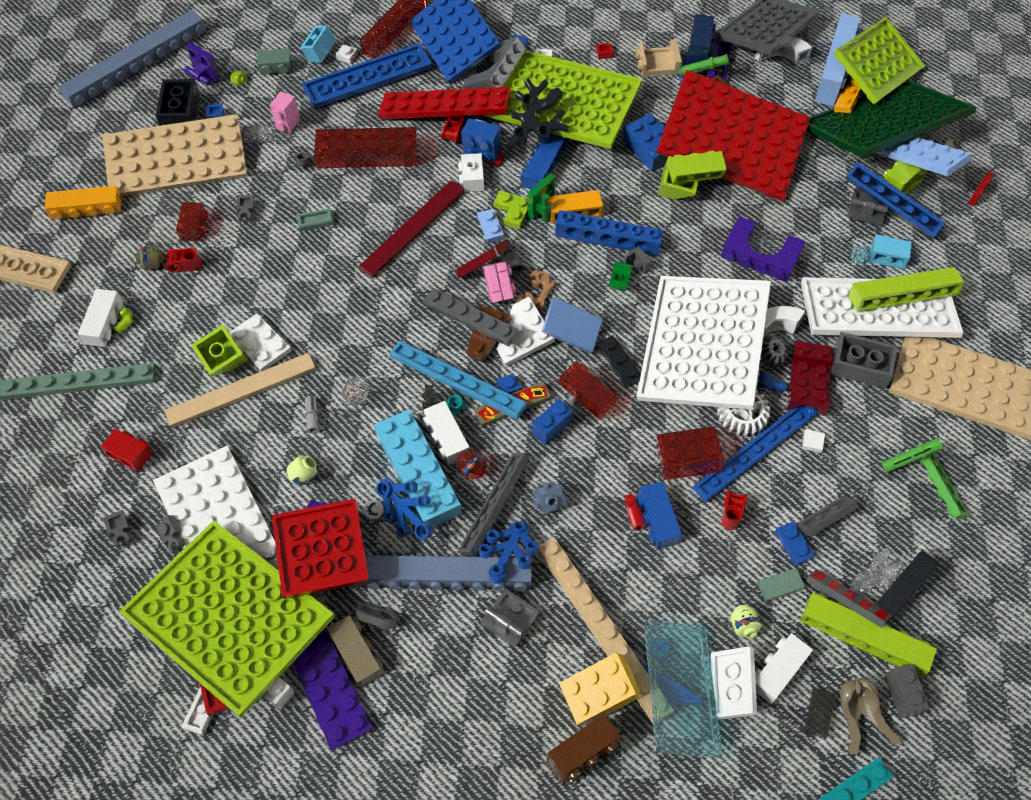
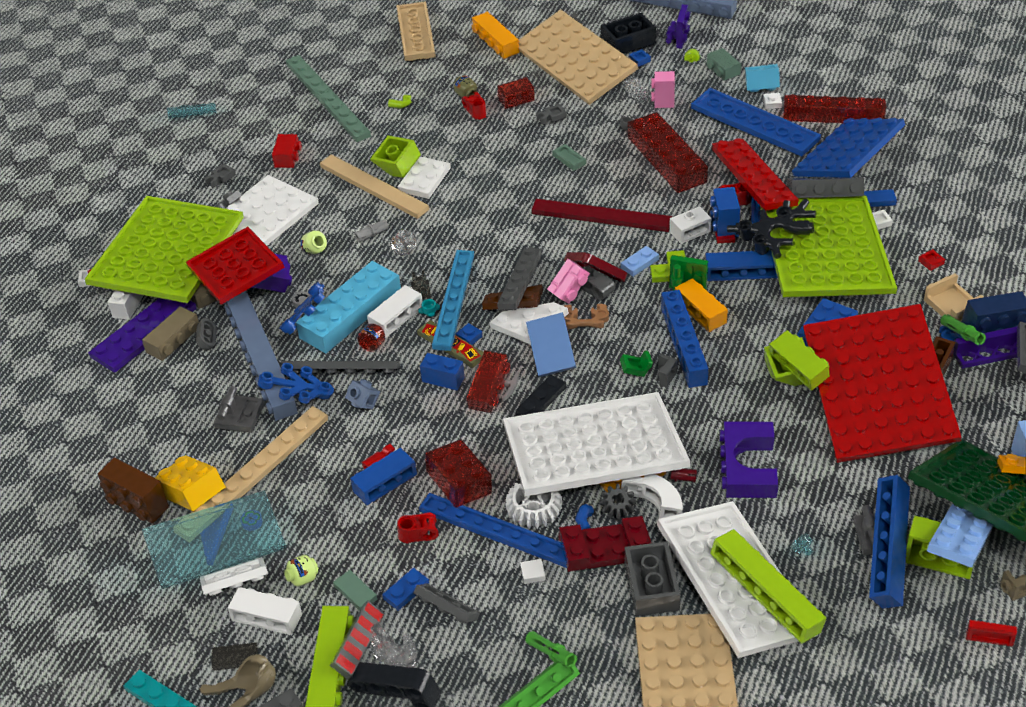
camera: 70 degrees right, 15 degrees down
(100, 318) = (394, 88): white brick -> none
(890, 251) = (826, 568): medium azure brick -> none

